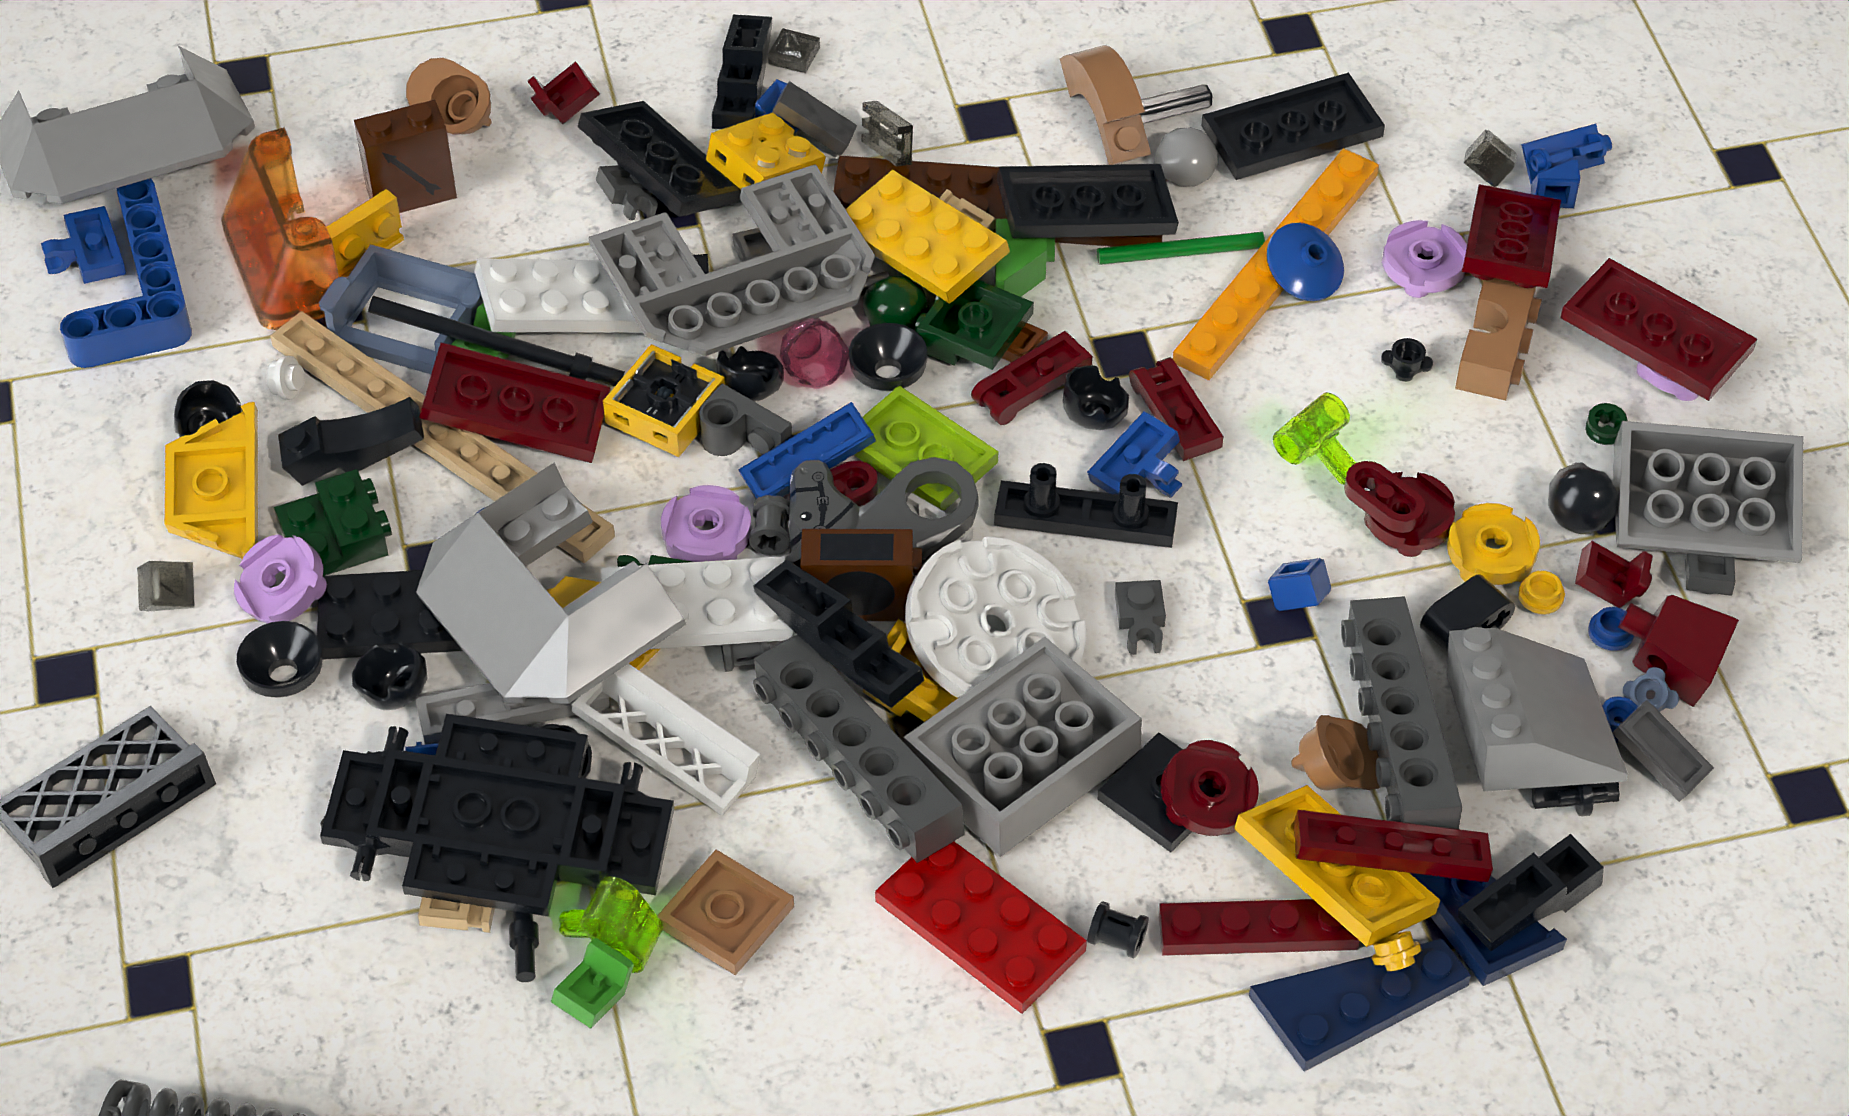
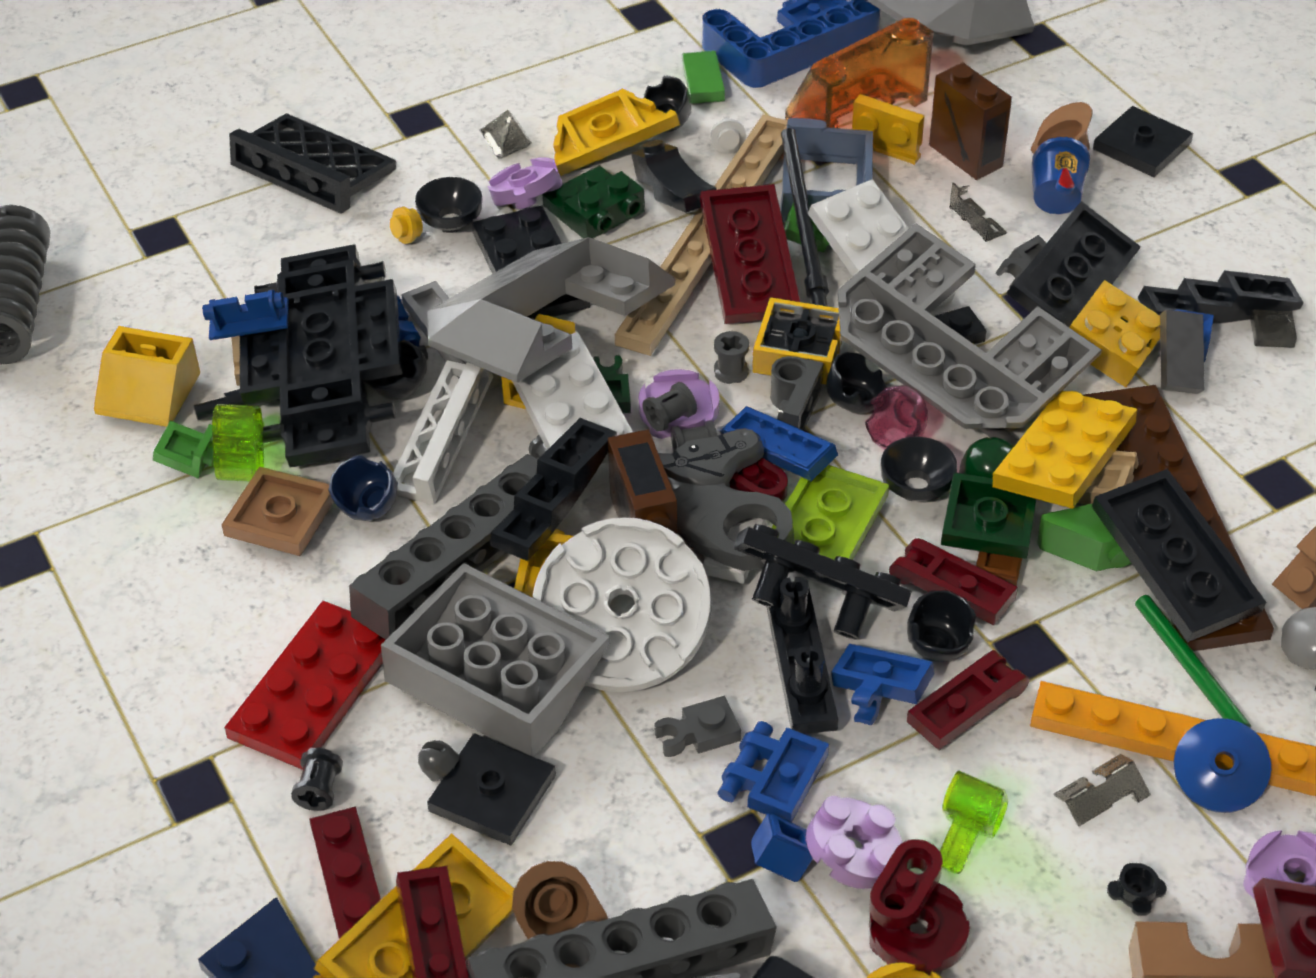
camera: 75 degrees right, 5 degrees down
(149, 376) = (703, 77): none -> bright green tile
(290, 713) = (406, 224): none -> yellow plate
(390, 676) = (450, 262): black hair -> none
(439, 869) = (259, 314): none -> blue hinge
(459, 1011) = (145, 376): none -> yellow slope
(475, 42) = (1143, 141): none -> black plate
(510, 216) = (973, 216): none -> clear smoke piece
(516, 123) = (1059, 174): none -> blue hat
(564, 94) = (1115, 201): dark red bracket -> none
(660, 457) = (731, 353): none -> dark grey bush
(735, 820) = (363, 488): none -> dark blue hair
(736, 522) = (669, 406): none -> dark grey bush
(885, 140) = (1187, 400): clear smoke tile -> none
(998, 470) = (842, 574): none -> black plate
(1132, 827) = (437, 759): none -> dark grey hinge
(1190, 806) = (502, 787): dark red plate -> none
(1222, 558) = (786, 776): none -> blue plate
(1308, 328) = (1100, 798): none -> clear smoke piece
(1316, 526) = (853, 818): none -> lavender plate

